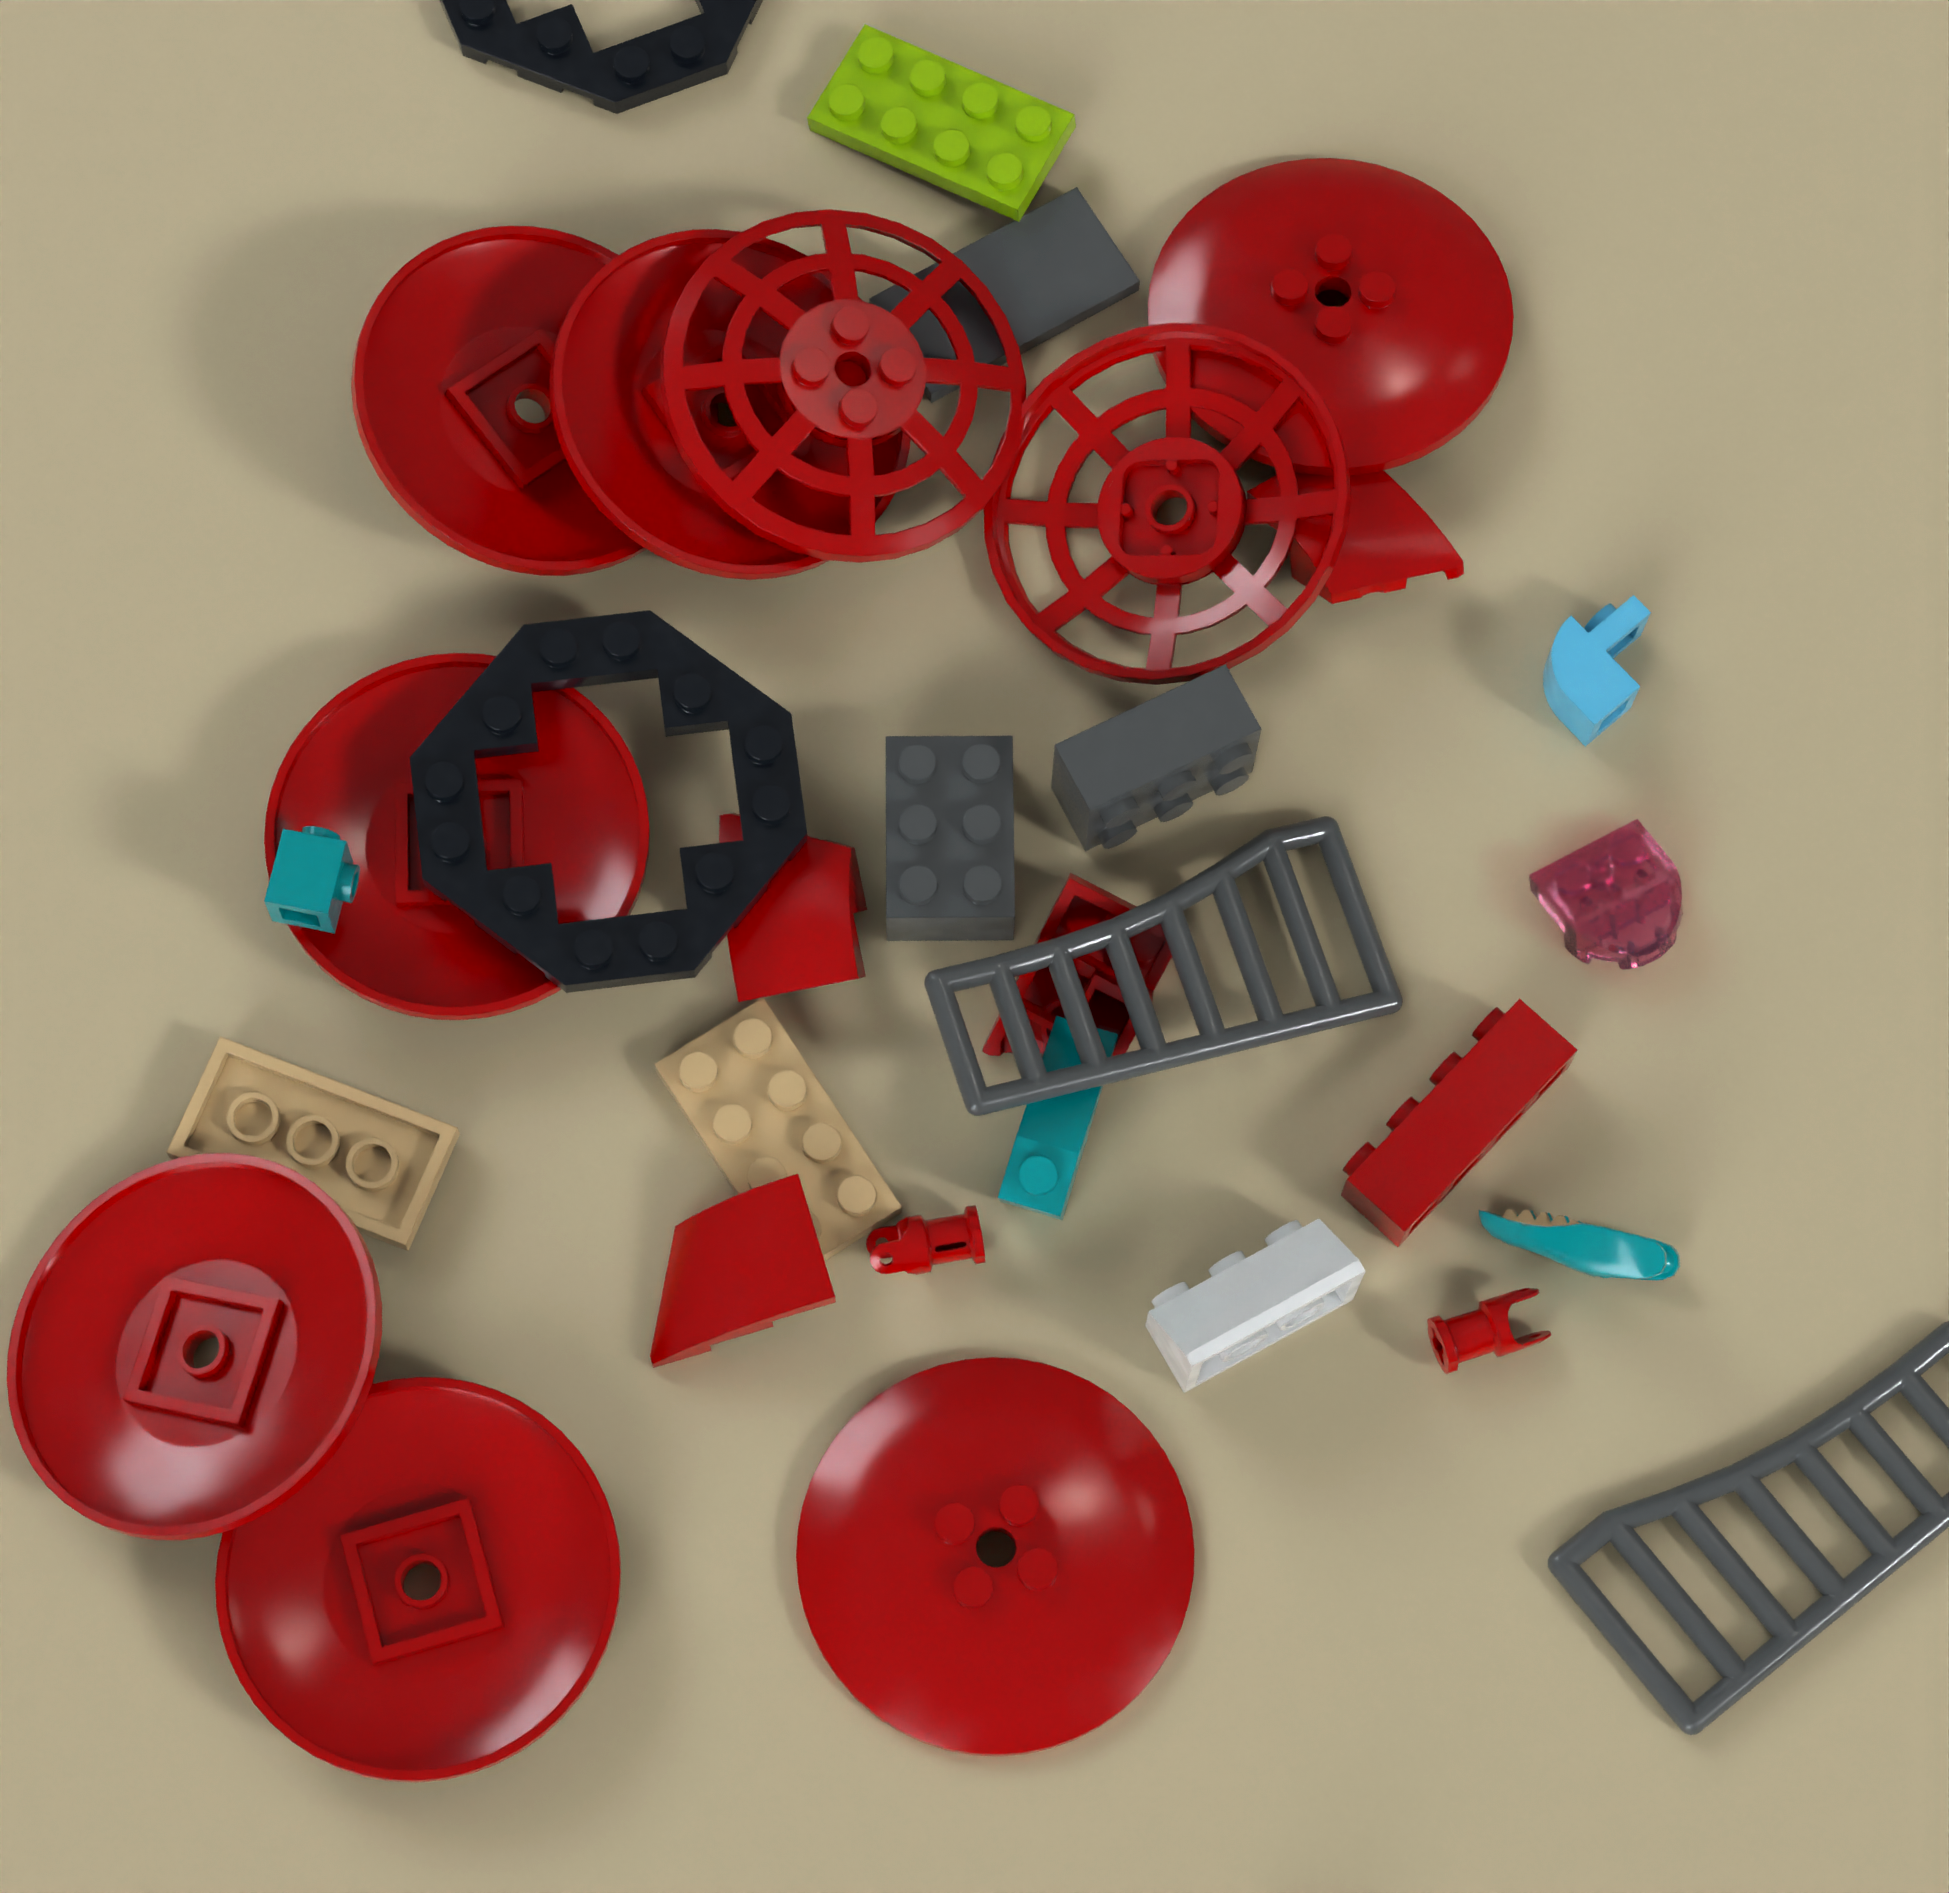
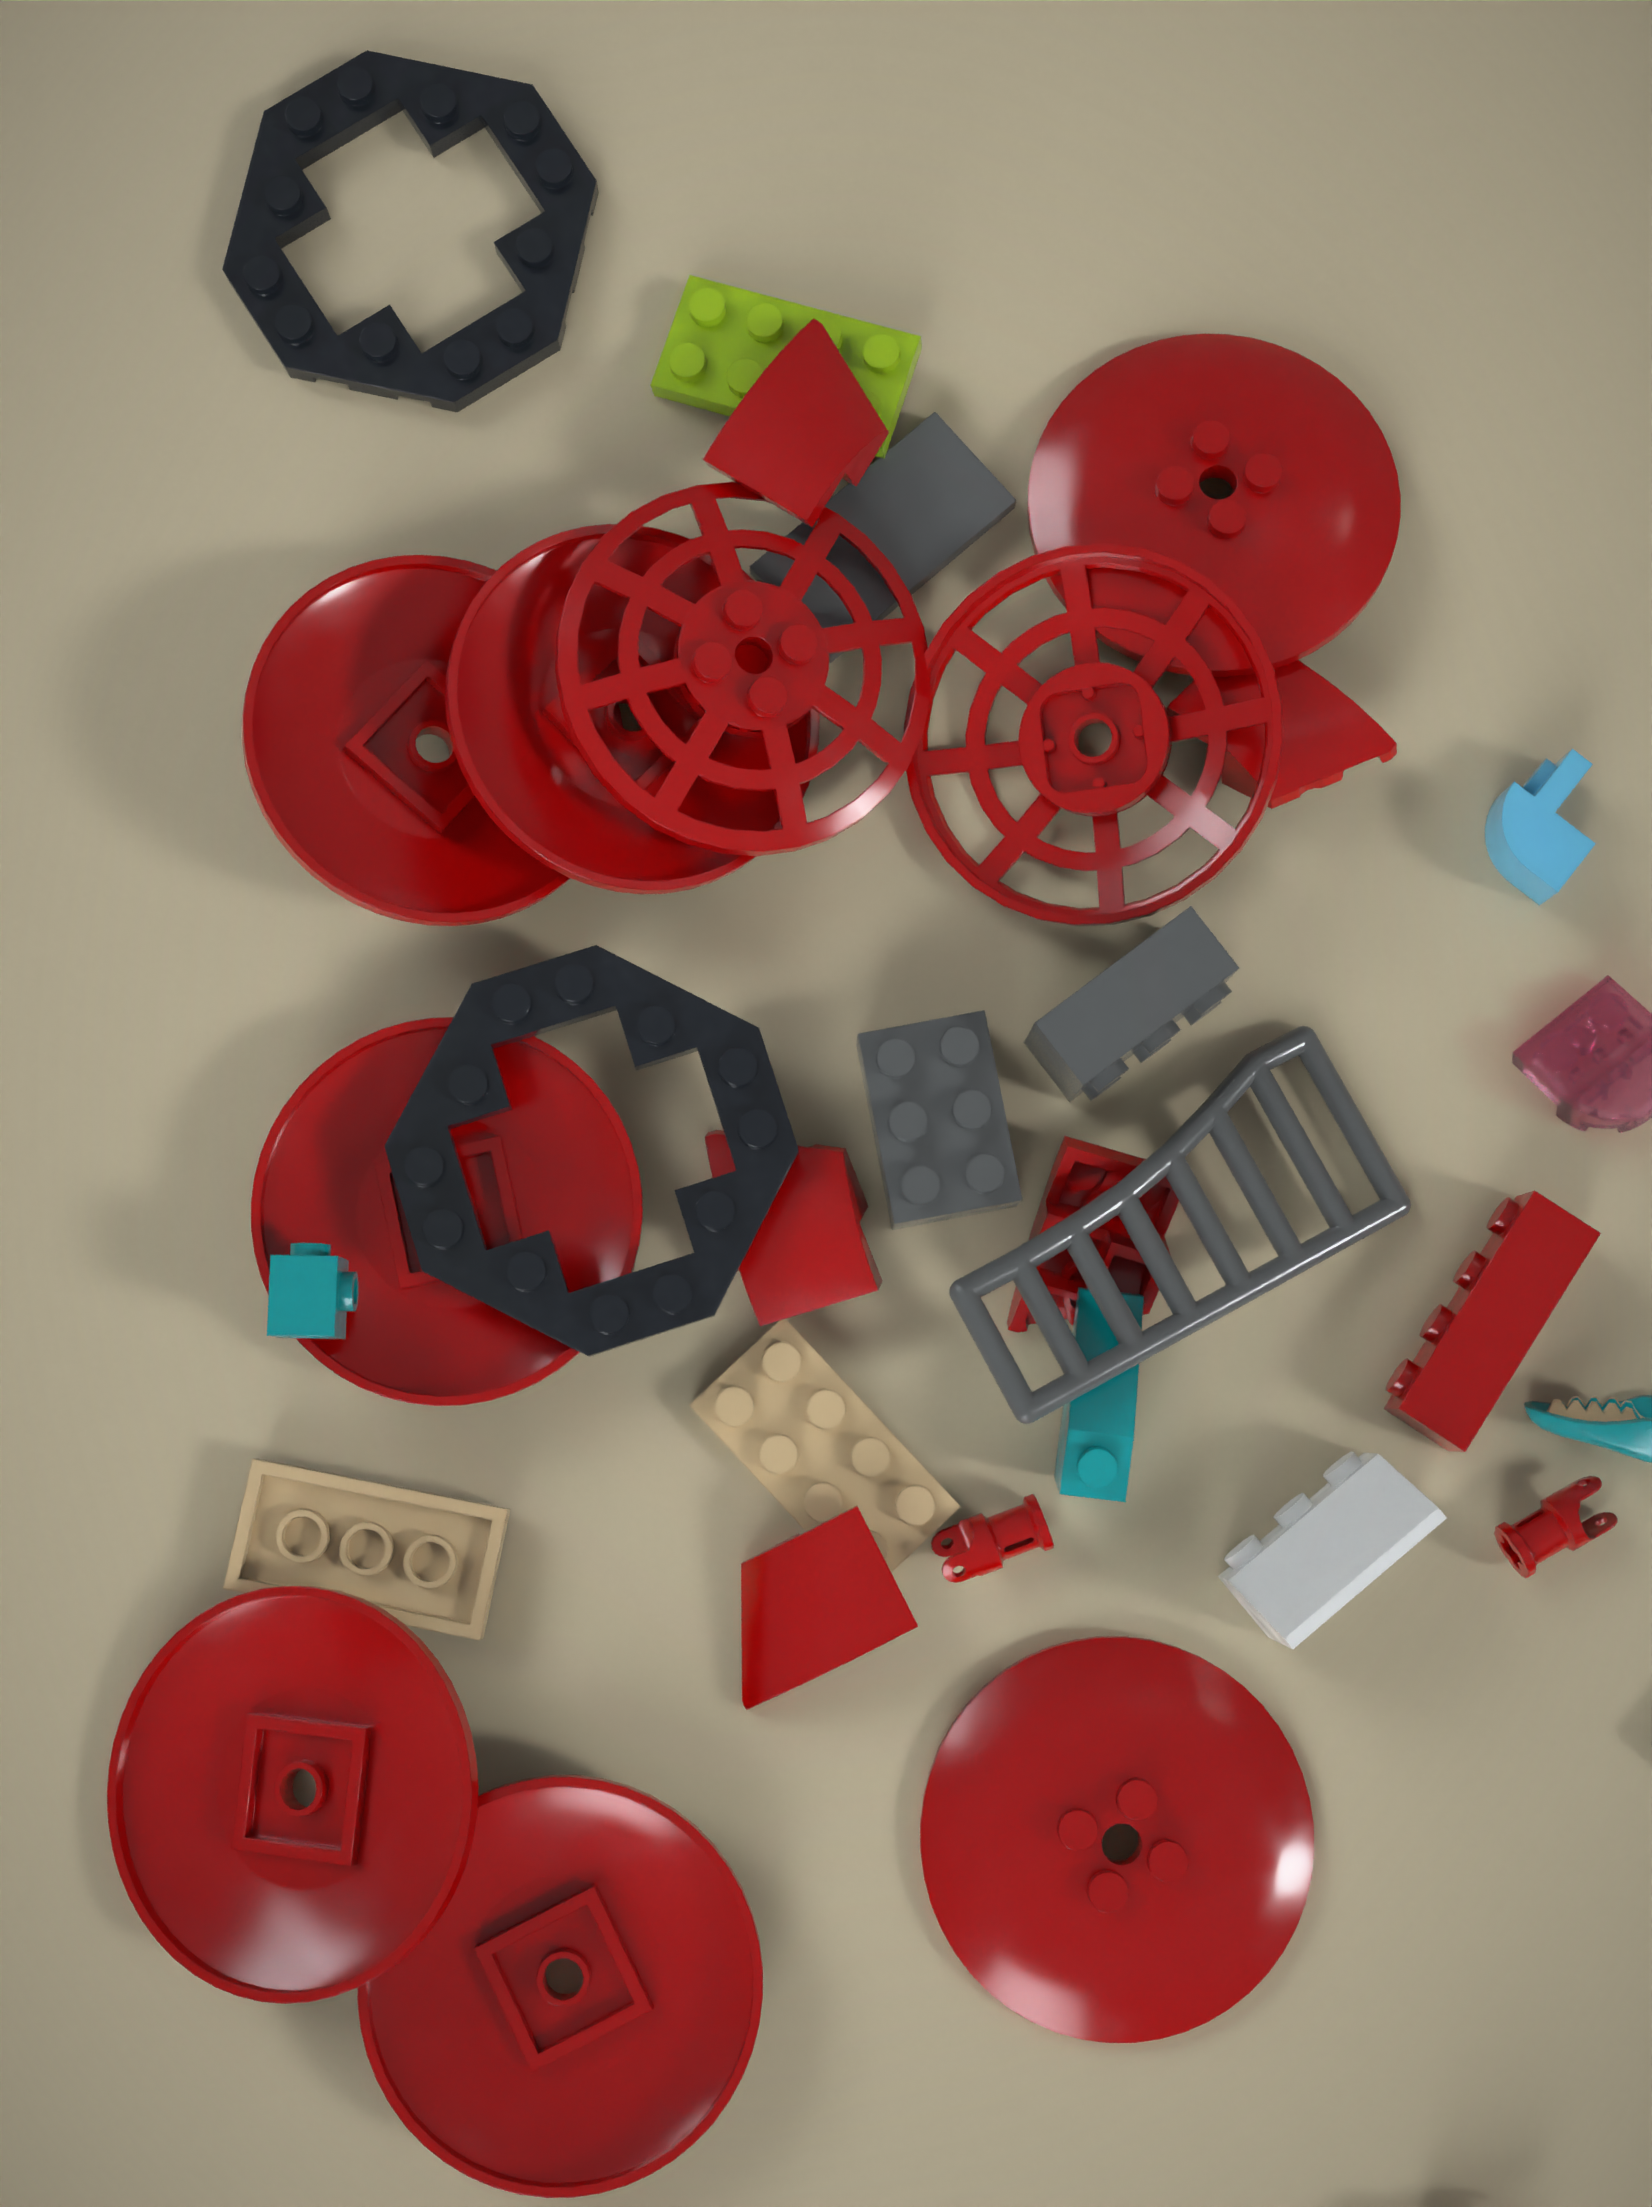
camera: 10 degrees left, 10 degrees up
(939, 175) = (800, 428): none -> red slope

